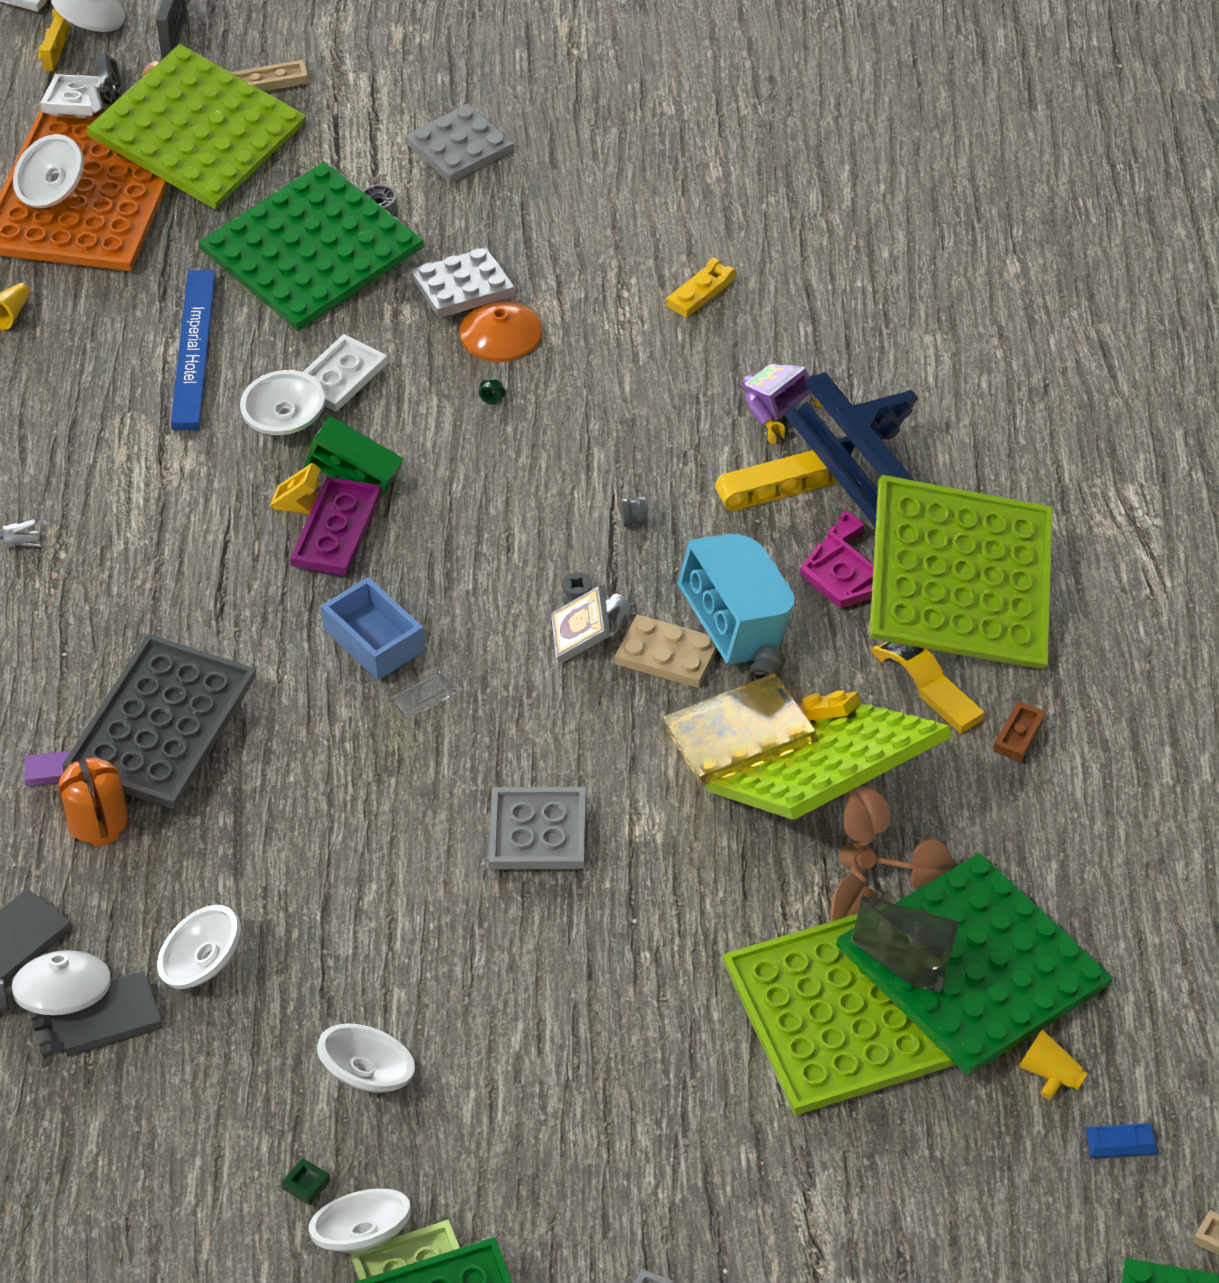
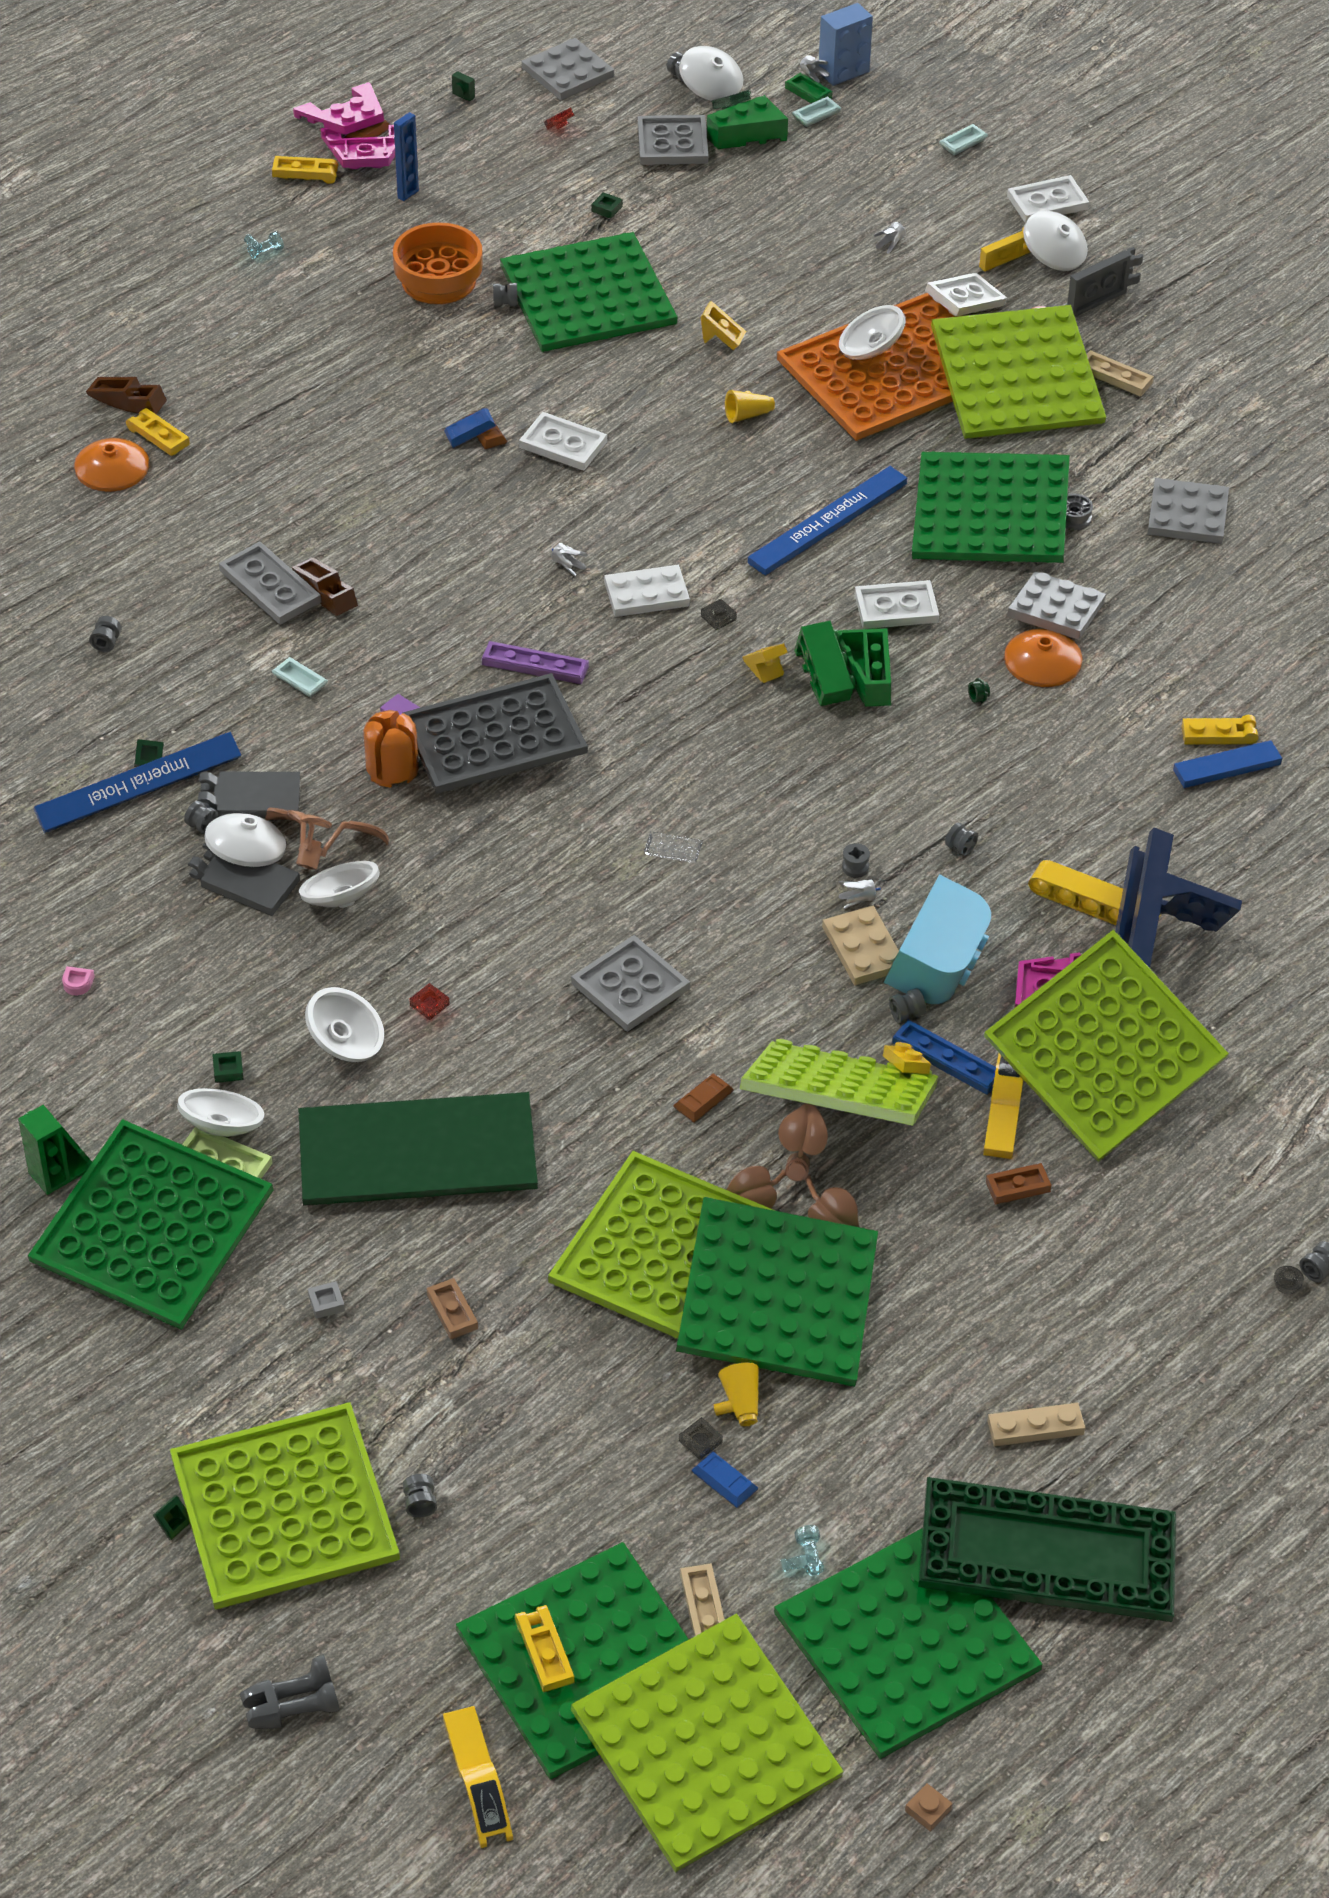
camera: 45 degrees right, 0 degrees up
(66, 1229) = (77, 980): none -> bright pink tile
(104, 640) = (535, 662): none -> medium lavender tile
(110, 80) = (1006, 300): dark grey tile -> none
(120, 512) = (646, 590): none -> white plate
(133, 943) = (310, 849): none -> nougat plant
(206, 487) = (718, 614): none -> clear smoke plate
(282, 402) = (827, 594): white dish -> none
(336, 526) = (762, 700): magenta plate -> none
(373, 628) = (691, 779): medium blue piece -> none
(394, 430) = (869, 664): none -> green wedge
(399, 980) = (429, 1001): none -> clear red plate
(551, 1107) = (417, 1148): none -> dark green tile
(580, 624) = (823, 881): tile -> none
(709, 868) = (703, 1097): none -> dark orange tile
(739, 308) = (1227, 764): none -> blue tile
(739, 729) = (826, 1024): clear yellow plate -> none
(756, 1204) = (452, 1308): none -> medium nougat plate
(774, 393) = (1186, 839): medium lavender torso -> none
(860, 678) = (948, 1056): none -> blue tile
(906, 941) = (729, 1234): clear smoke slope -> none
(1069, 1126) = (700, 1438): none -> clear smoke plate

